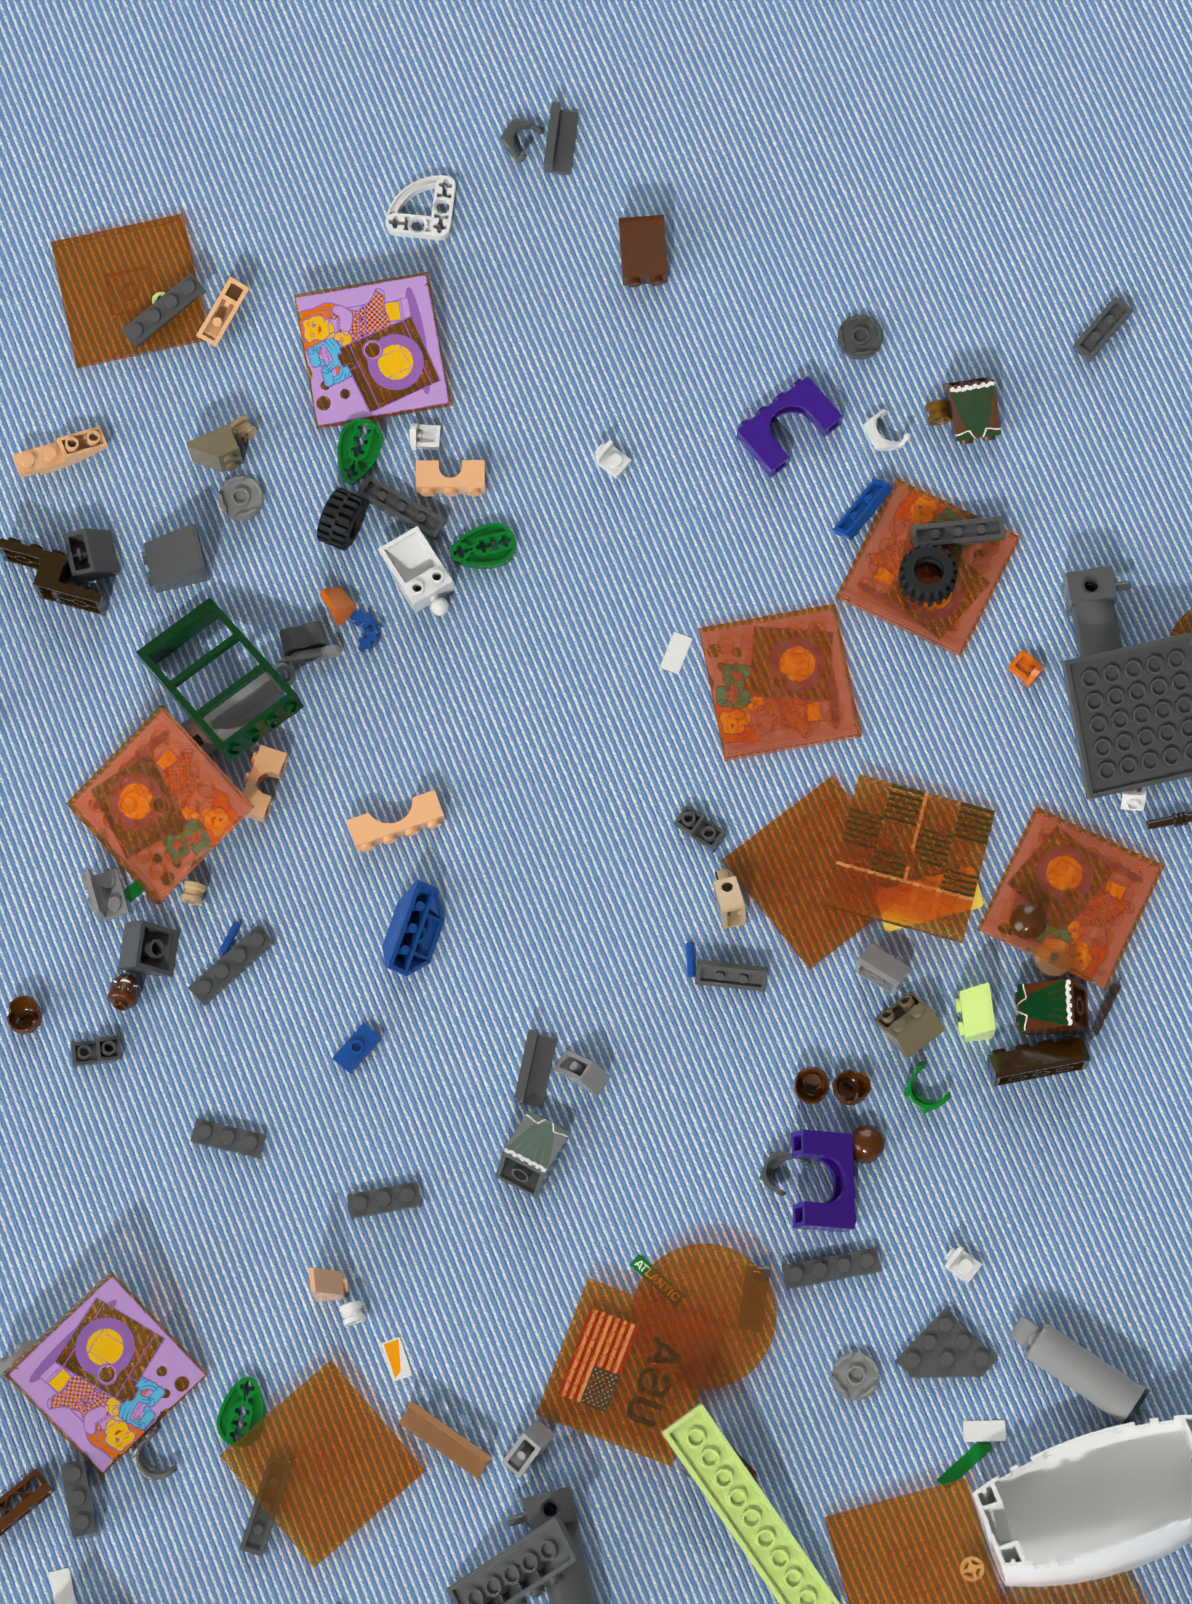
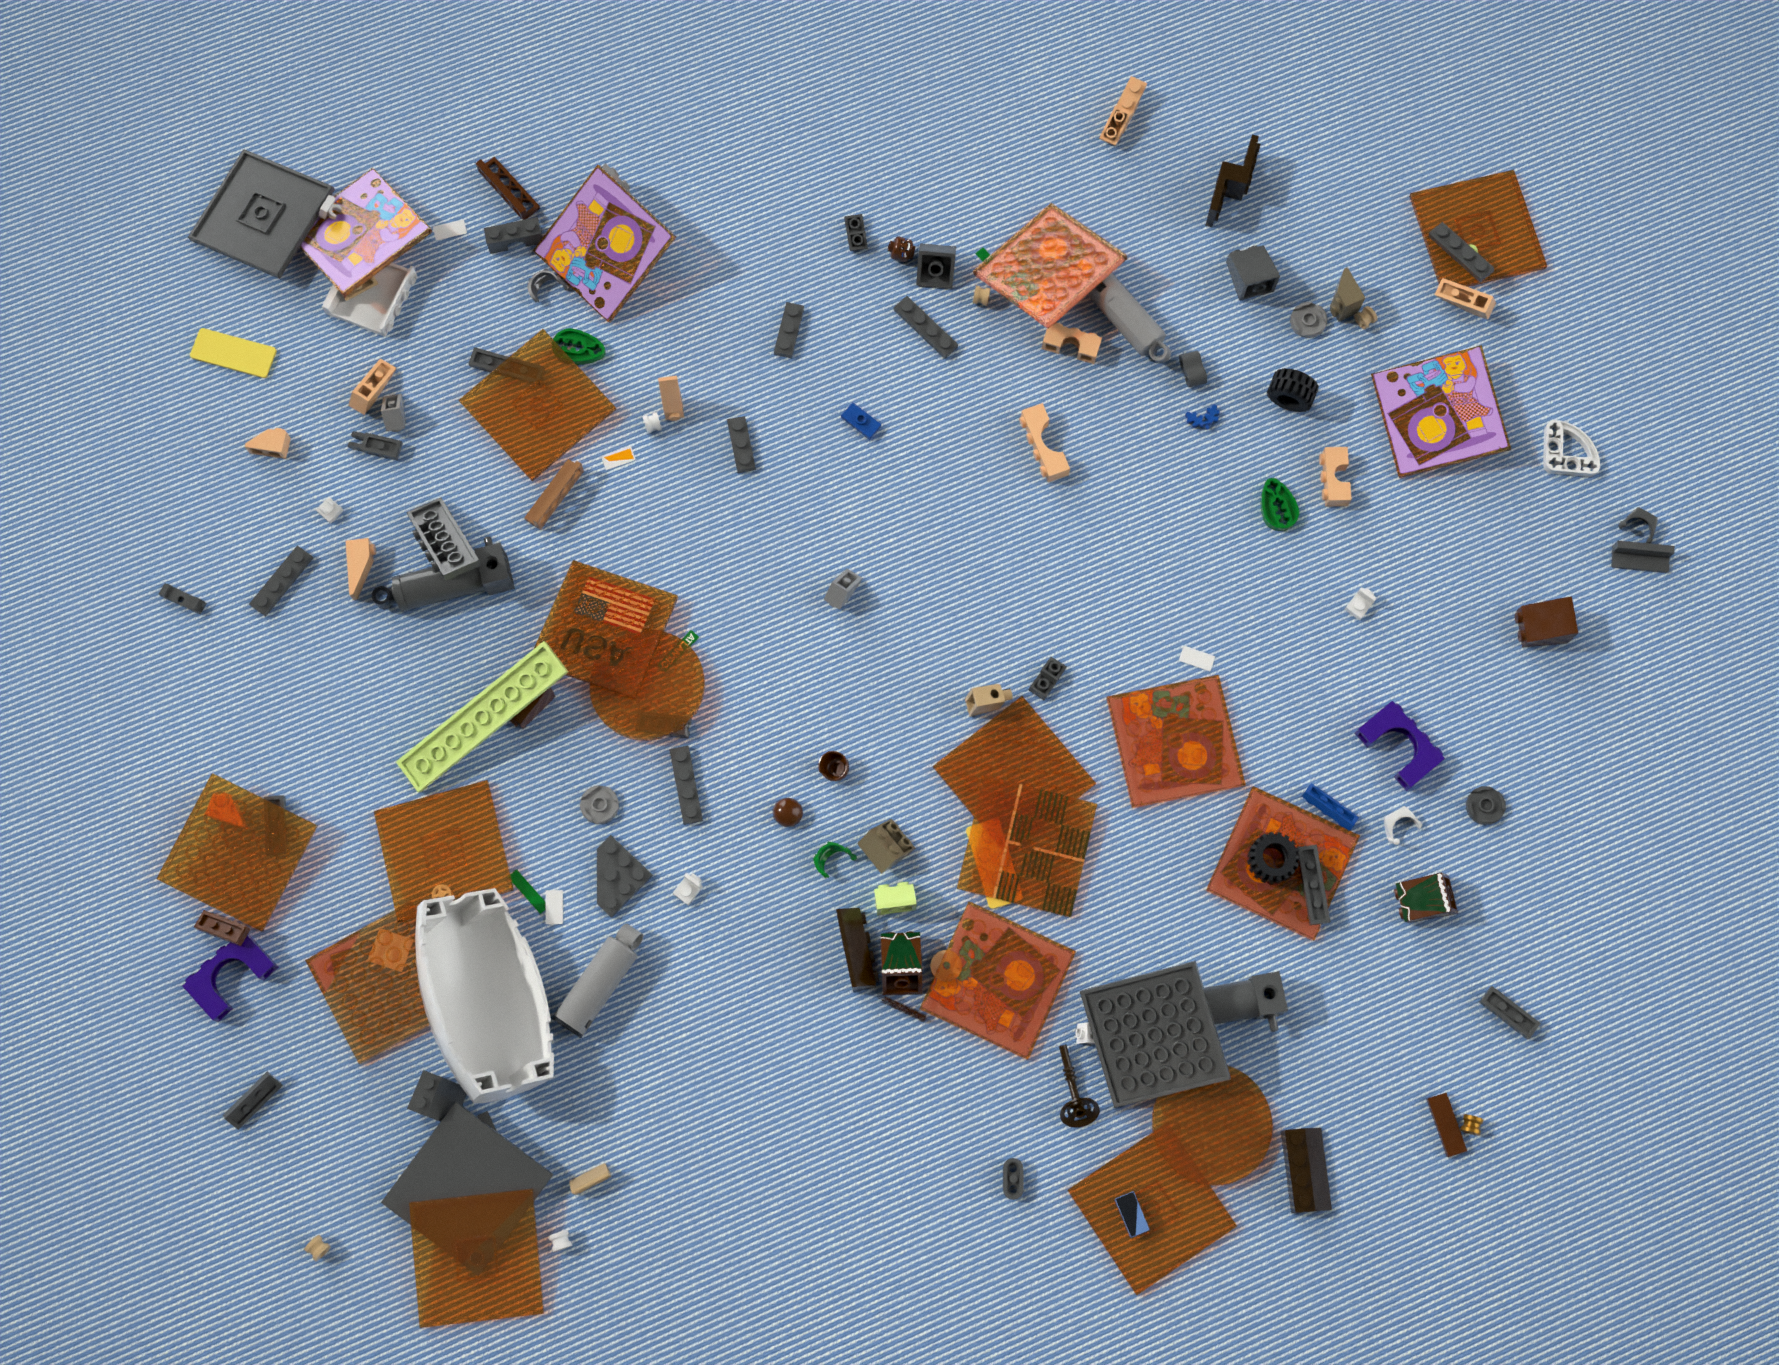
camera: 85 degrees right, 0 degrees up
(24, 1015) = (882, 180): reddish brown hair -> none
(60, 454) = (1335, 184): light nougat slope -> none
(91, 554) = (1252, 208): dark grey slope -> none
(106, 894) = (978, 230): light grey bracket -> none
(182, 632) = (1183, 268): dark green window -> none
(229, 938) = (947, 325): blue piece -> none
(313, 655) = (1180, 378): light grey piece -> none
(339, 604) = (1223, 393): orange tile -> none
(346, 443) = (1354, 415): green piece -> none
(402, 507) = (1307, 440): dark grey plate -> none
(413, 929) = (954, 457): blue wedge -> none
(417, 568) = (1252, 452): white slope -> none
(425, 436) = (1370, 456): white tile -> none
(528, 1448) = (546, 554): light grey slope -> none
(532, 1154) = (777, 551): slope -> none
(535, 1069) = (846, 553): dark grey panel -> none
(690, 953) = (939, 672): blue piece -> none
(731, 975) = (924, 703): dark grey plate -> none
(771, 1166) = (764, 735): dark grey helmet -> none
(836, 1153) = (730, 788): dark purple arch -> none
(851, 1087) = (832, 798): reddish brown hair -> none
(882, 968) = (932, 822): light grey slope -> none
(937, 412) = (1421, 869): pearl gold wheel -> none
(1026, 668) = (1197, 945): orange tile -> none
(1028, 921) = (974, 941): reddish brown hair -> none

